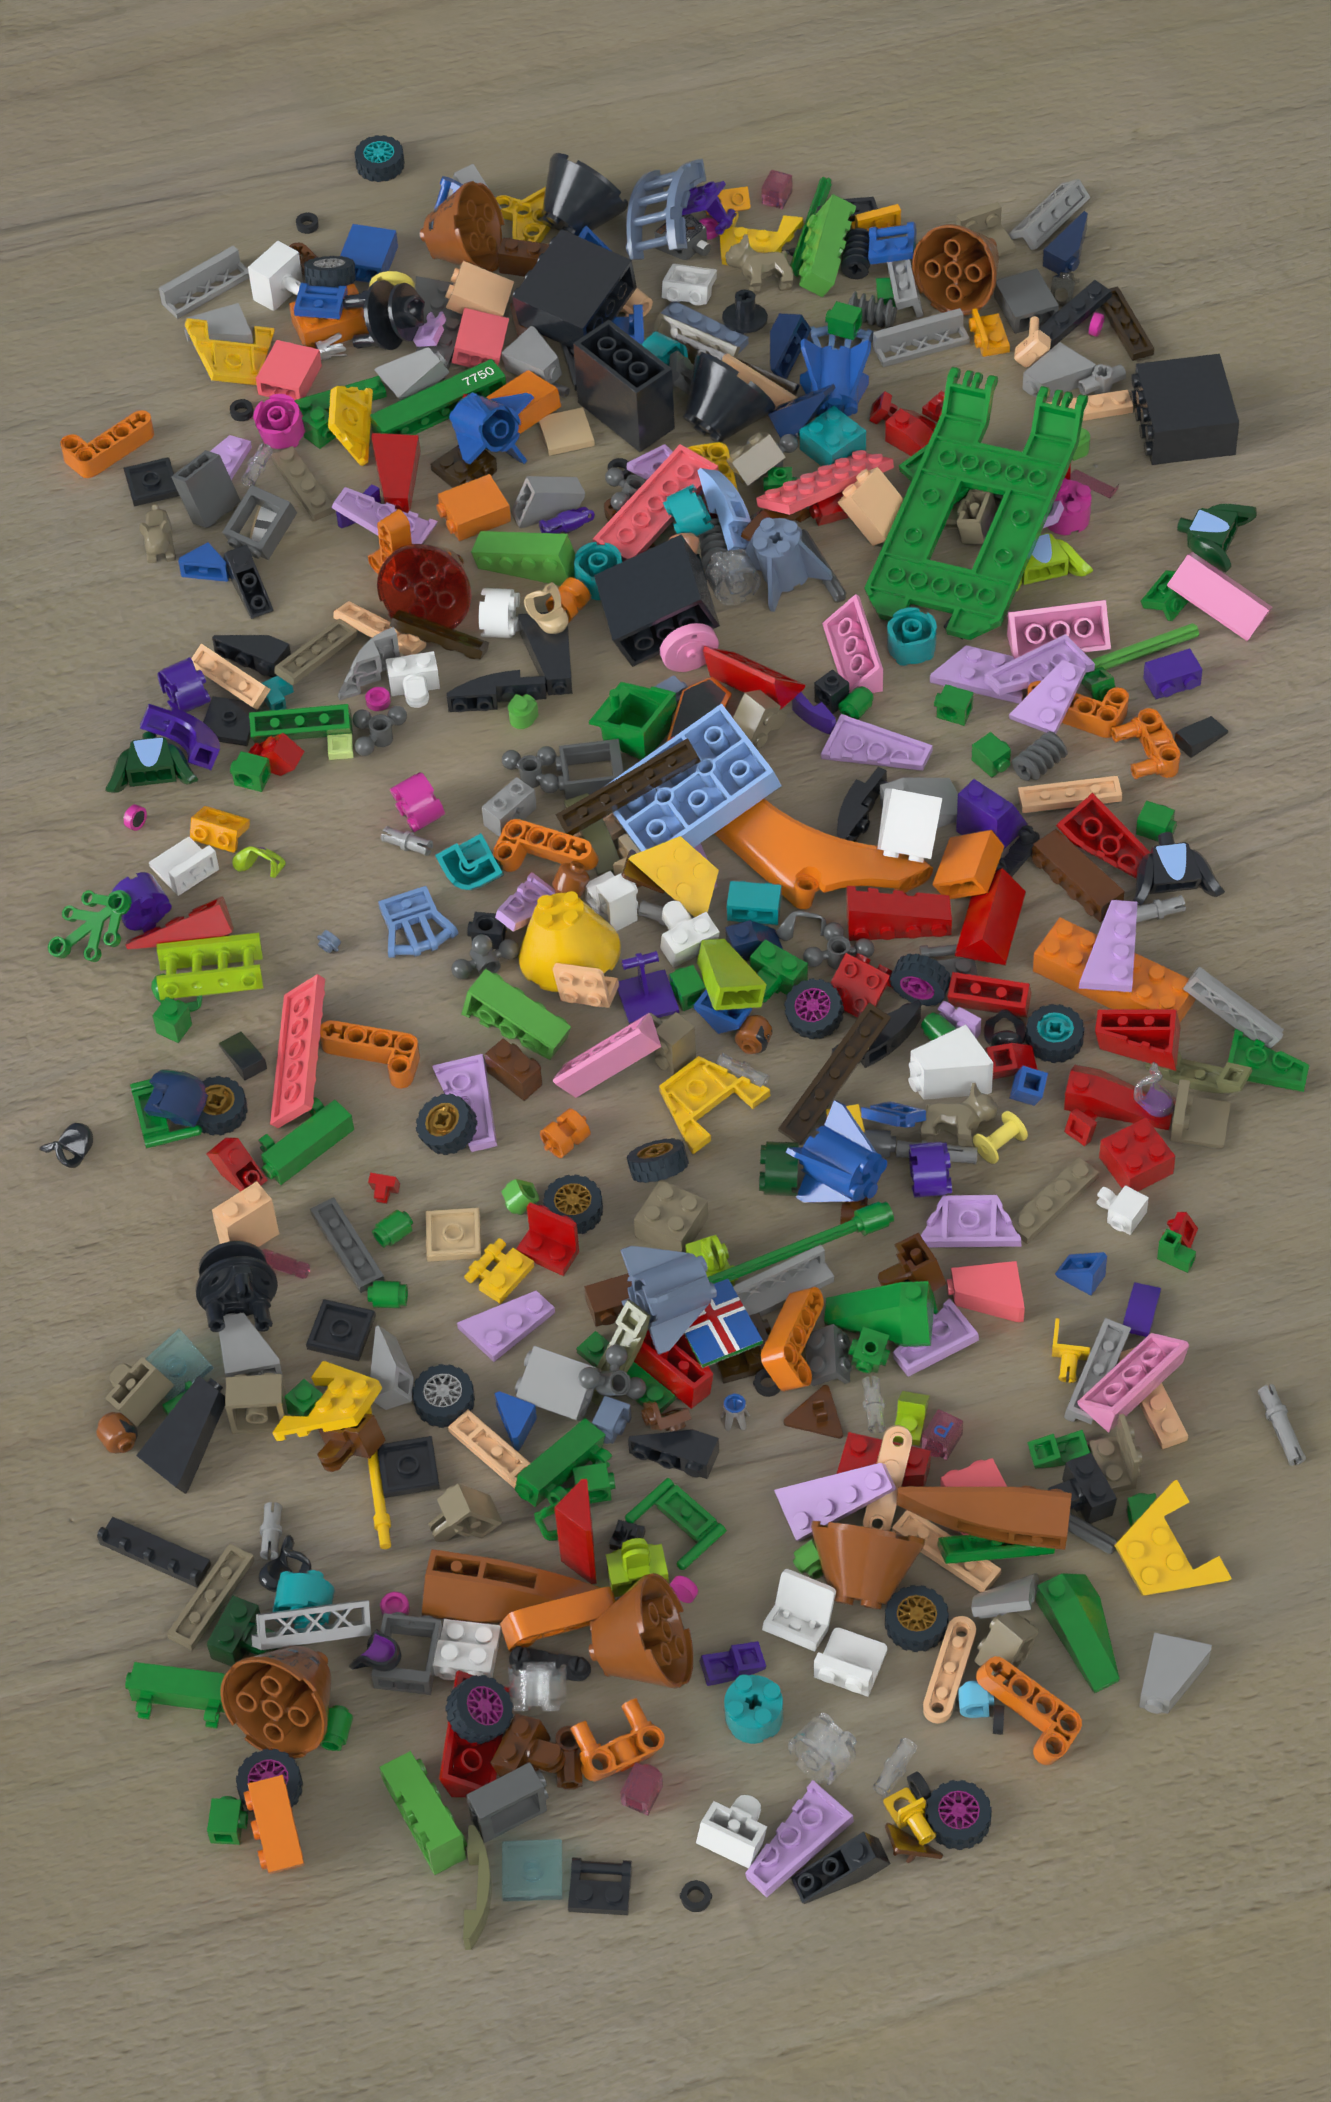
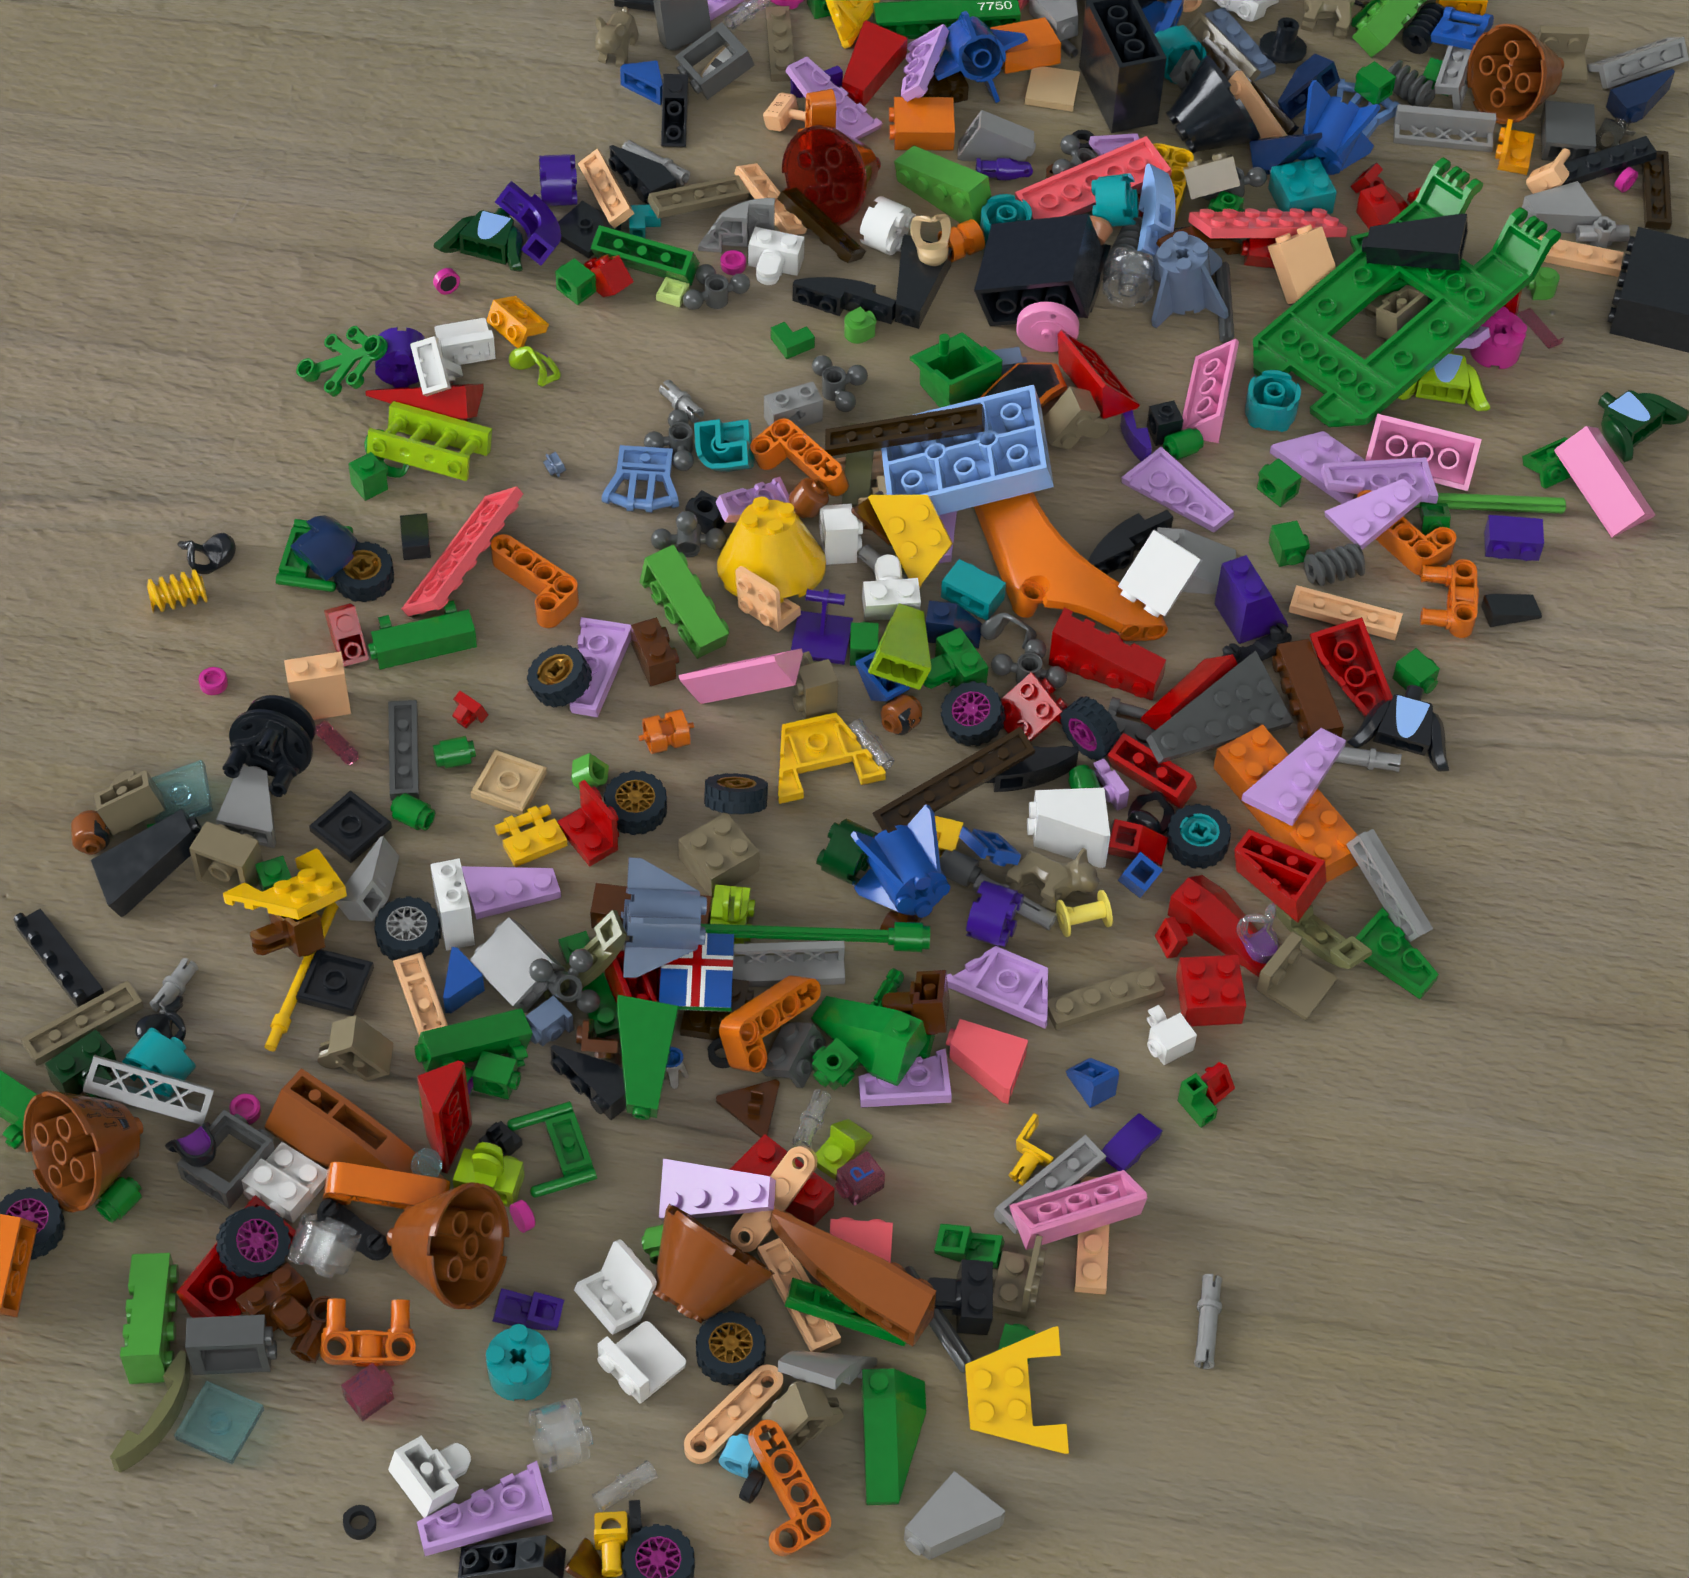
camera: 20 degrees right, 0 degrees up
(62, 1190) = (176, 590): none -> yellow piece
(141, 1256) = (213, 681): none -> dark pink tile
(180, 898) = (432, 369): none -> white bracket
(286, 636) = (681, 174): none -> light grey pin
(344, 544) = (782, 111): none -> light nougat piece
(417, 801) = (708, 368): dark pink brick -> none
(426, 875) = (679, 439): none -> dark grey piece
(445, 450) = (922, 60): none -> lavender wing
(470, 750) = (791, 342): none -> green piece
(476, 1357) = (452, 904): none -> white window
(581, 1581) = (426, 1163): none -> clear light blue tile
(587, 753) = (891, 386): dark grey window -> none
(599, 1896) = (268, 1477): black plate -> none
(714, 1407) = (645, 1047): none -> green slope
(874, 1266) = (890, 985): none -> green axle
(967, 450) = (1419, 243): none -> black slope
(968, 864) = (1202, 638): orange brick -> none
(1022, 920) = (1223, 713): none -> dark grey wing

